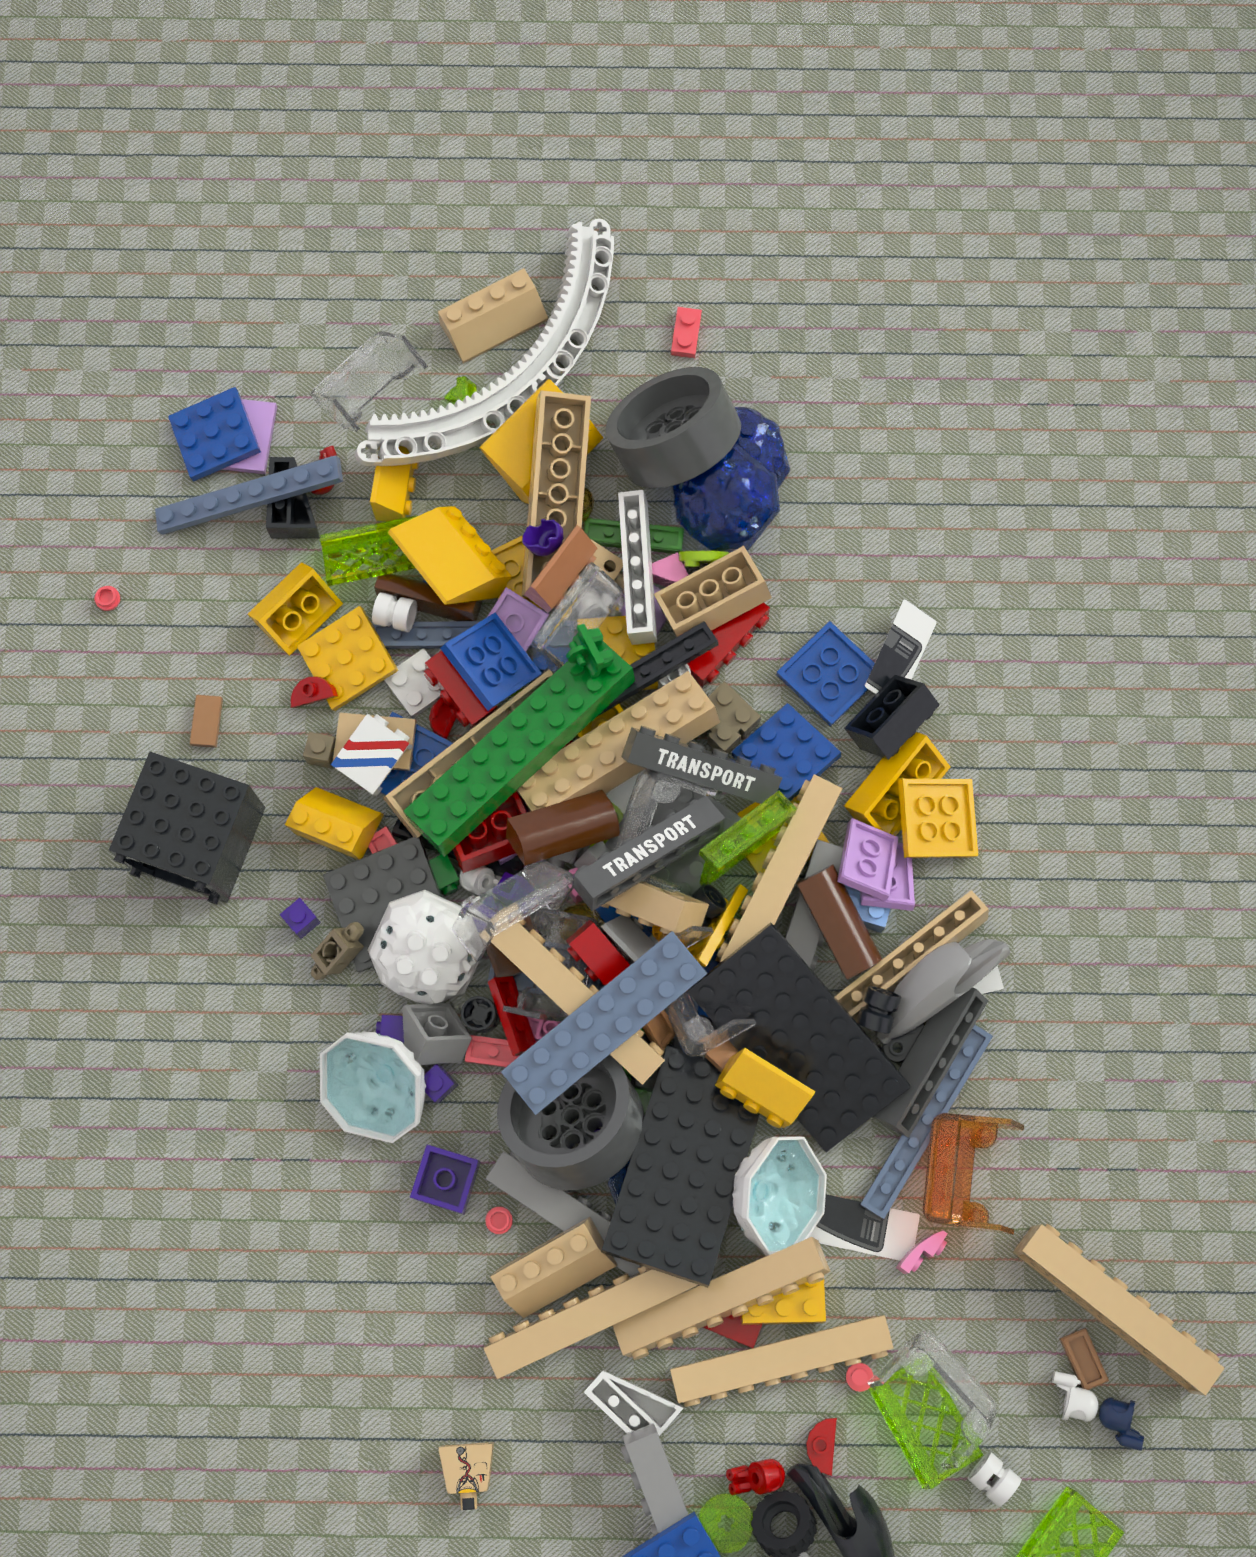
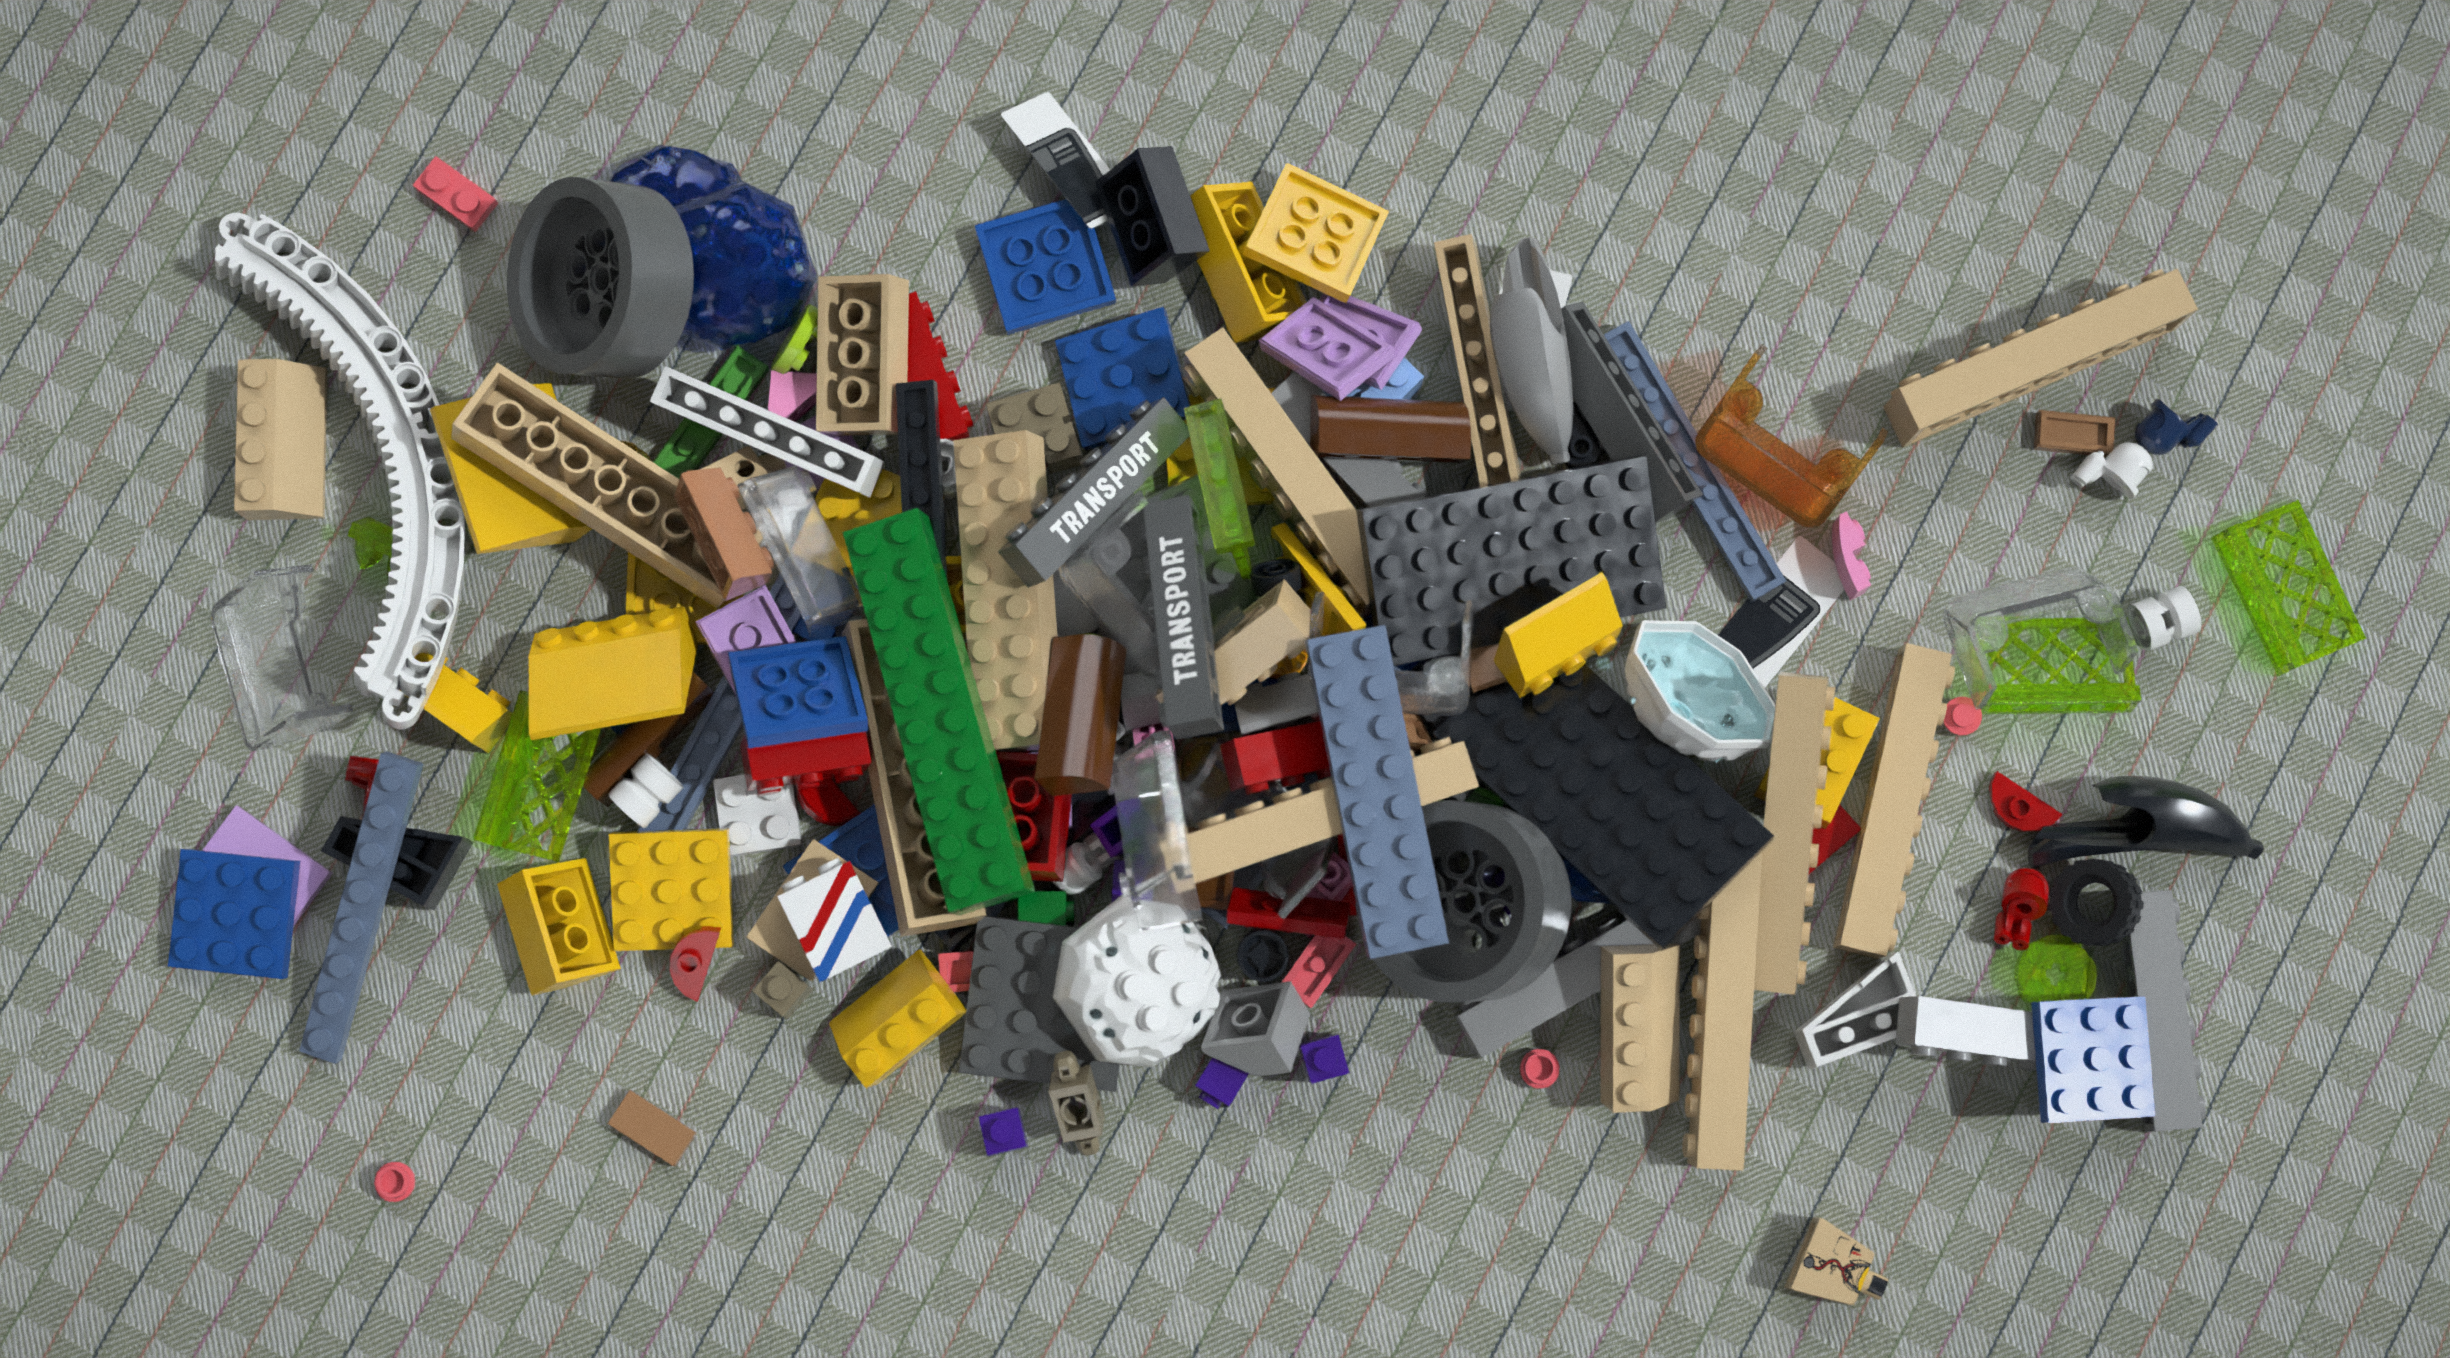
camera: 65 degrees left, 5 degrees up
(187, 827) = (802, 1220): black piece -> none
(372, 1086) = (1288, 1143): clear light blue rock -> none
(445, 1179) = (1455, 1110): brick -> none
(544, 538) = (666, 530): dark purple hair -> none
(586, 653) = (865, 554): green hips -> none
(879, 1009) = (1535, 444): black wheel -> none

